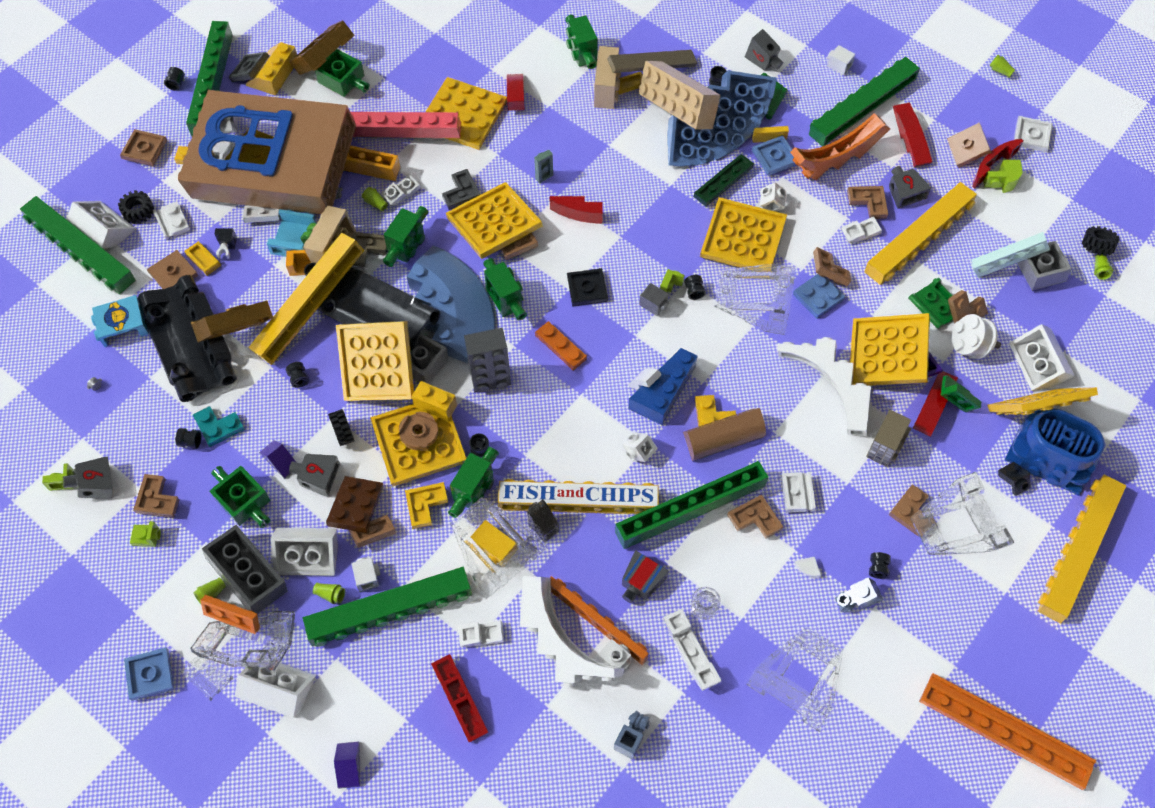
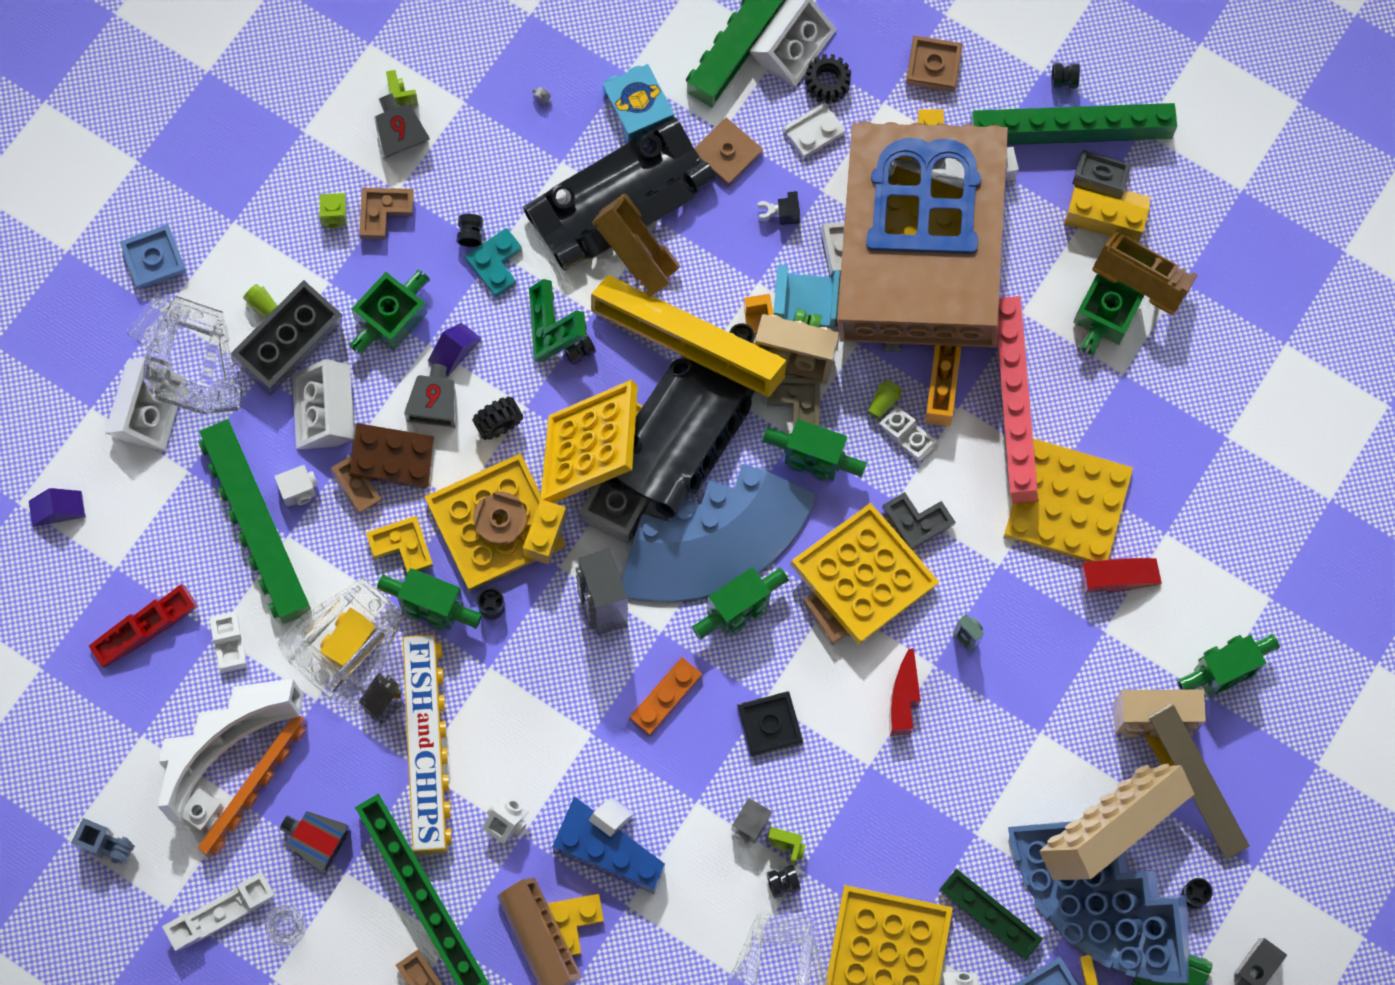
camera: 80 degrees right, 10 degrees up
(202, 258) = (756, 185): yellow tile -> none
(230, 614) = (229, 333): orange plate -> none
(288, 391) = (547, 334): none -> green plate
(330, 592) = (269, 448): lime cone -> none

